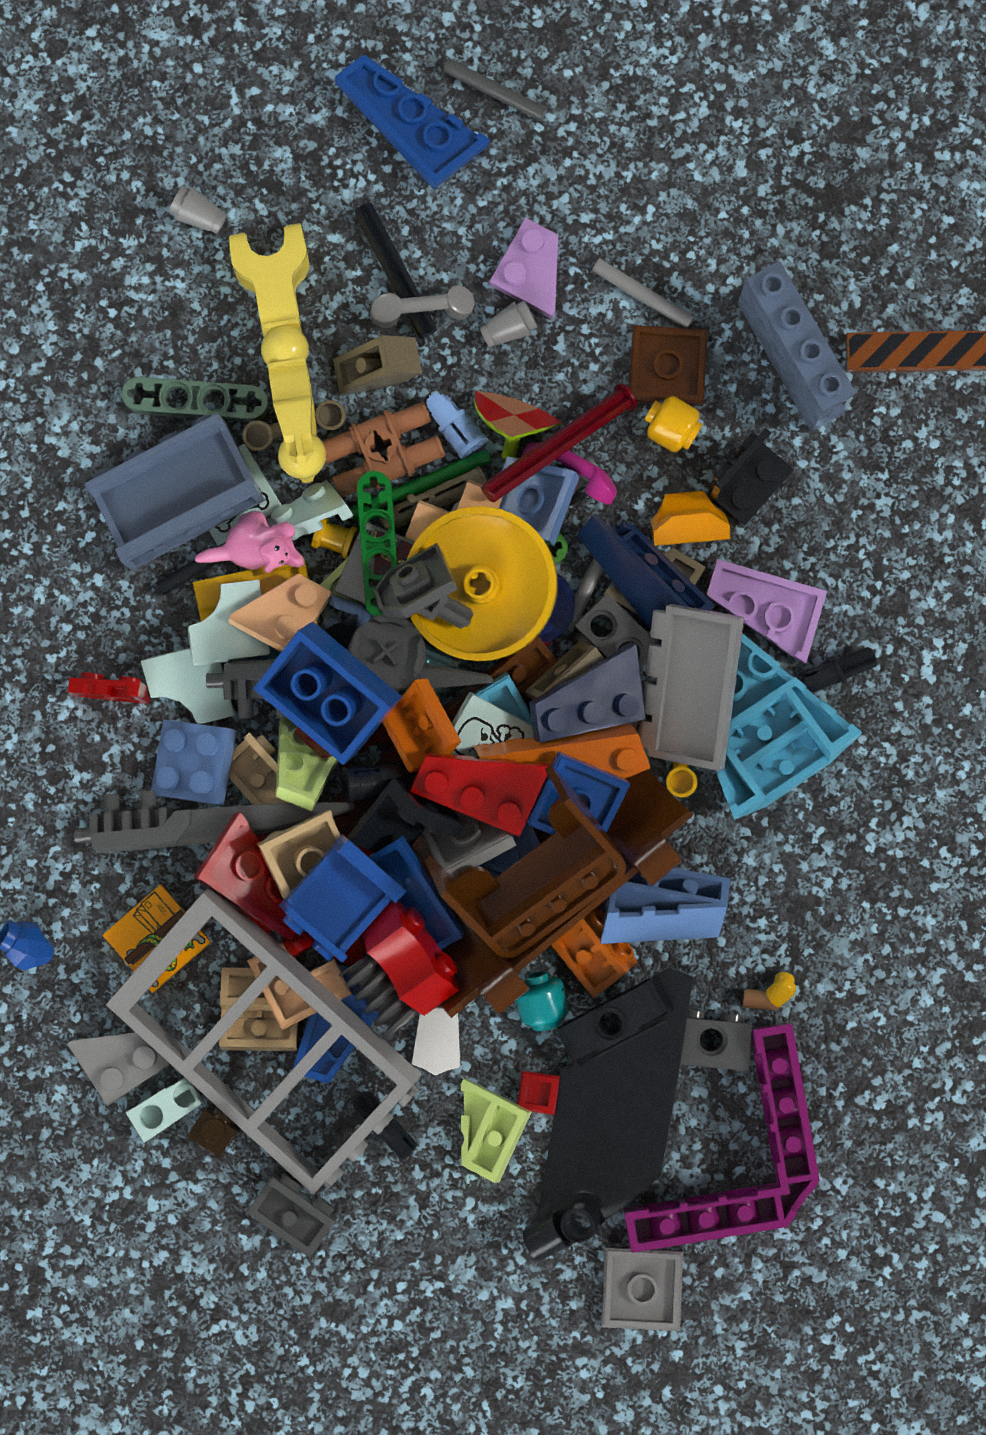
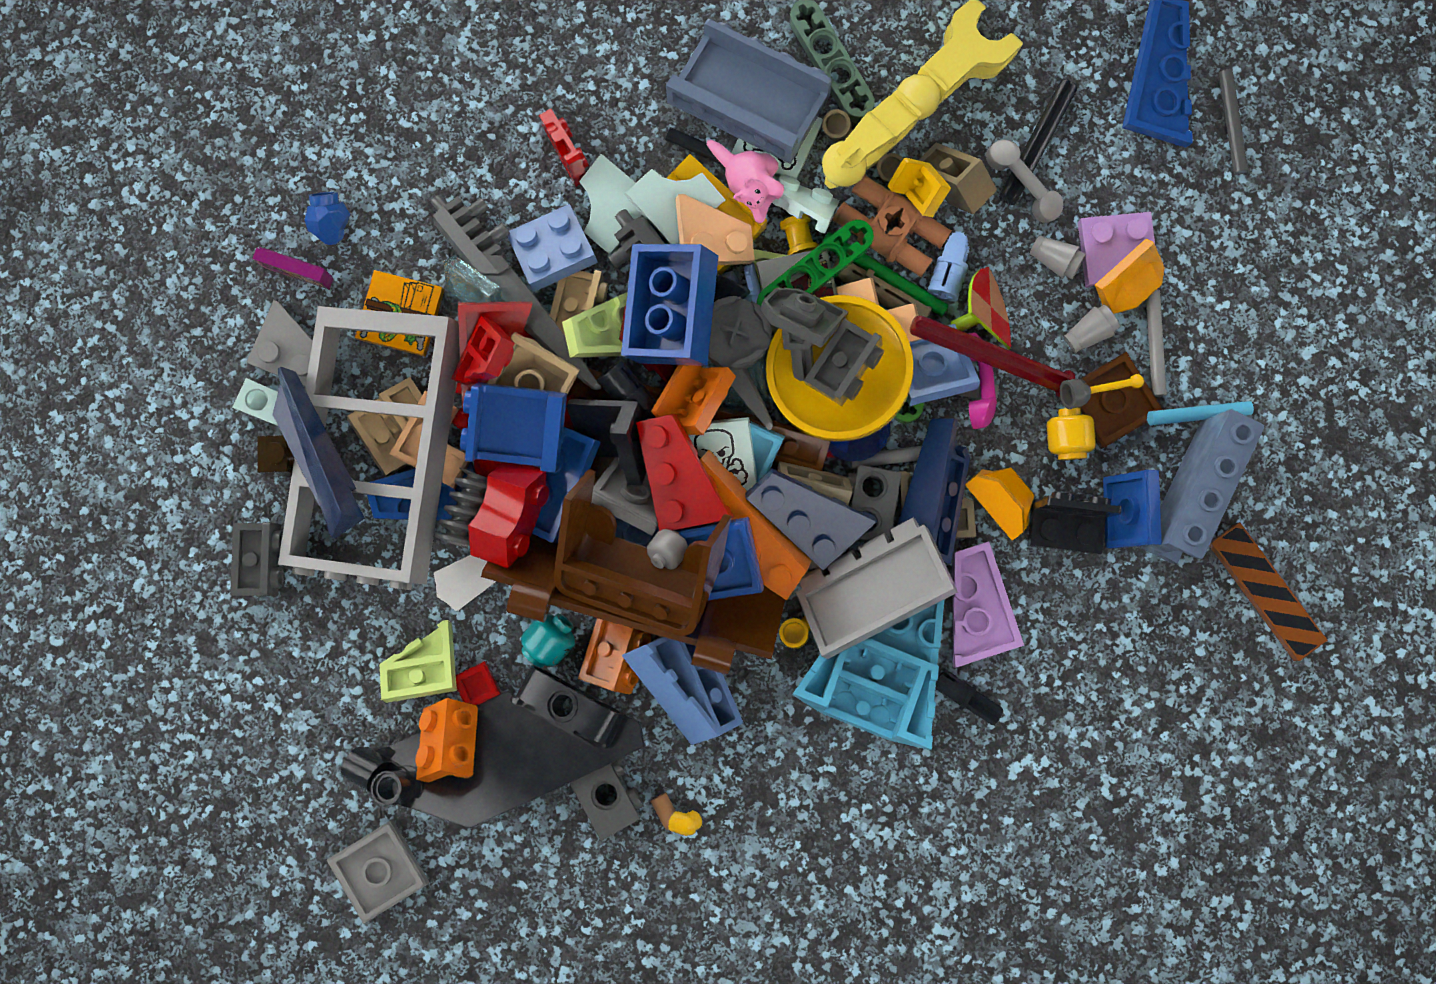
camera: 50 degrees right, 0 degrees up
(50, 1006) = (293, 267): none -> magenta tile
(178, 857) = (468, 283): none -> clear light blue tile
(241, 1093) = (315, 454): none -> dark blue wedge
(259, 882) = (485, 354): none -> red wing
(366, 401) = (920, 184): none -> yellow bracket
(393, 1134) = (369, 595): black axle -> none
(480, 576) = (844, 363): none -> dark grey bracket
(538, 840) = (667, 549): none -> light grey piece
(569, 1148) = (446, 740): none -> orange bracket
(574, 276) = (1132, 279): none -> light orange slope
(593, 340) = (1092, 328): none -> light grey cone
(642, 394) = (1077, 393): none -> dark grey hinge
(729, 300) = (1196, 413): none -> medium azure bar
(756, 1206) = (493, 913): magenta brick -> none
(784, 417) = (1140, 513): none -> blue tile

